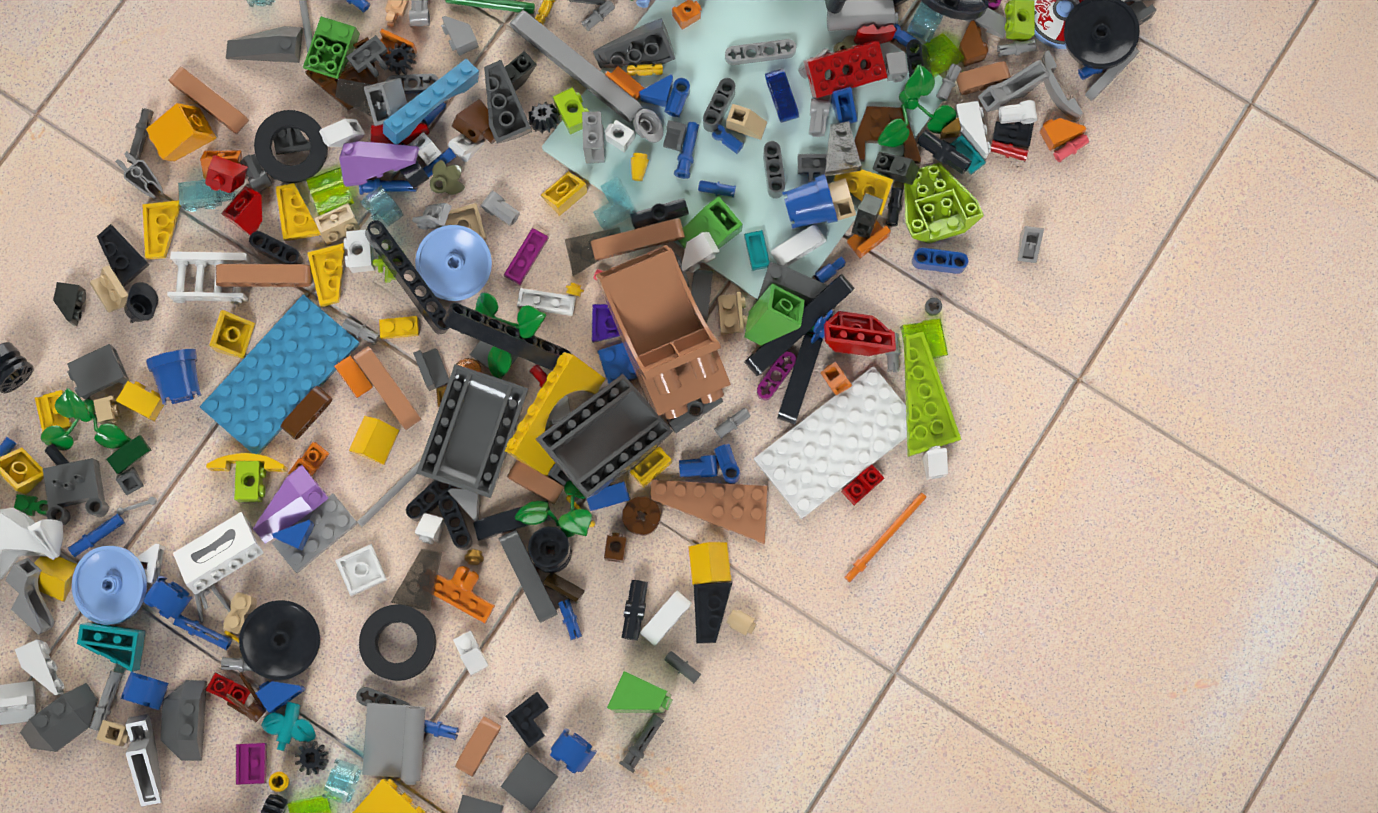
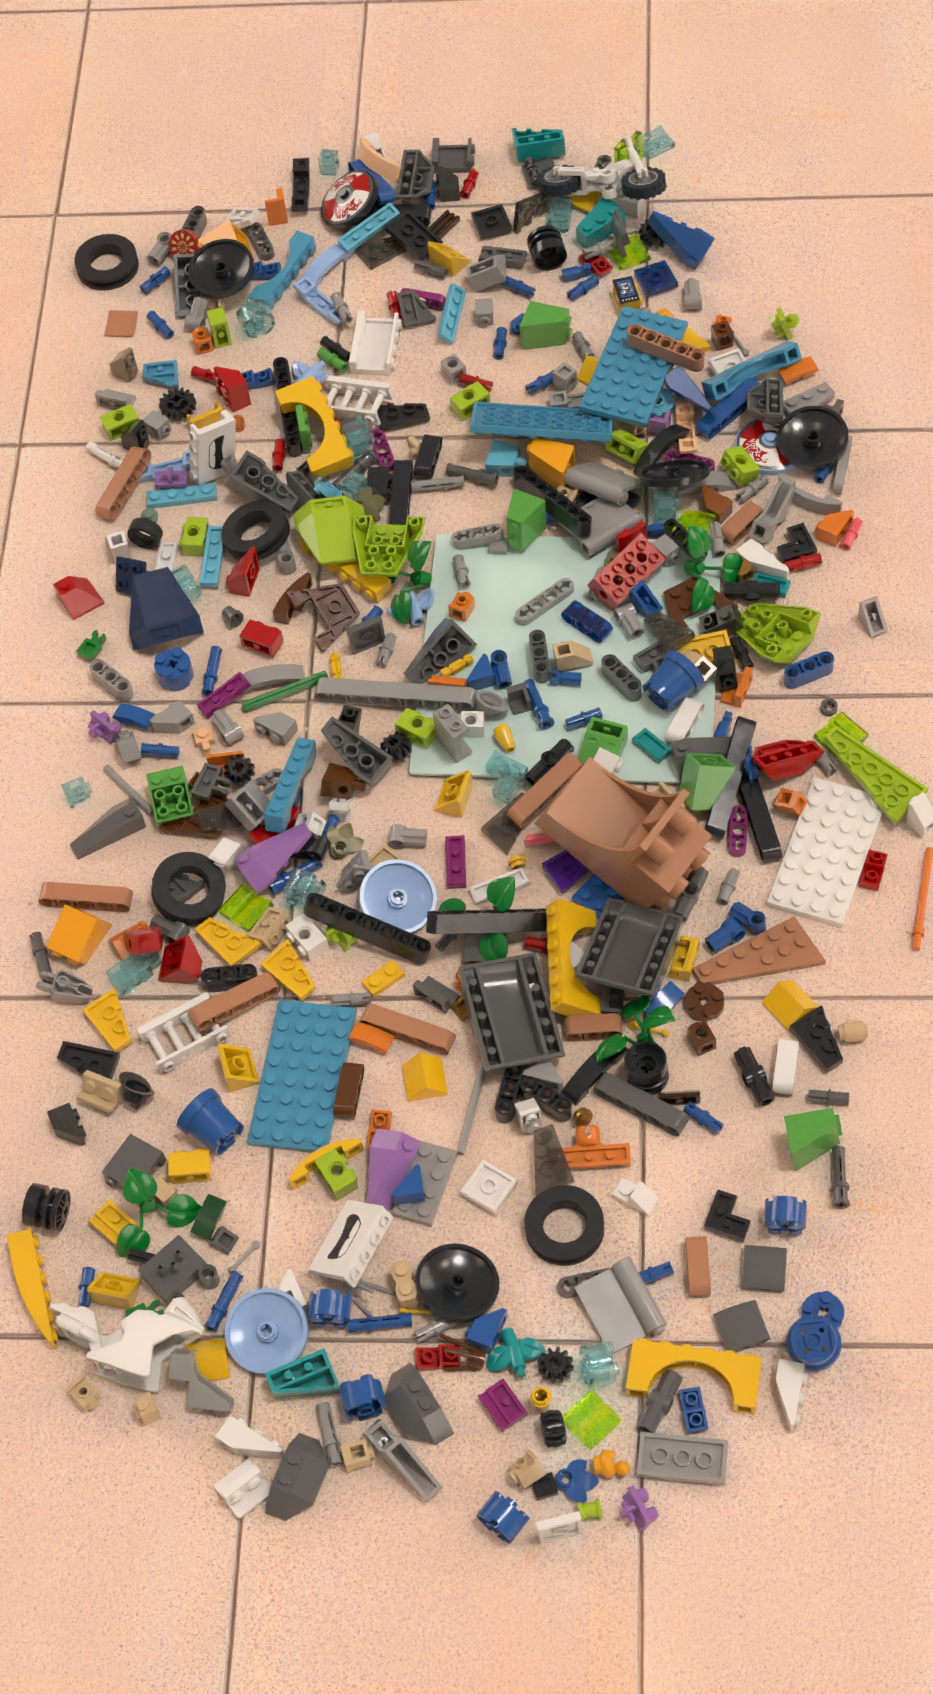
camera: 25 degrees left, 20 degrees down
(1023, 112) = (794, 526): white piece -> none

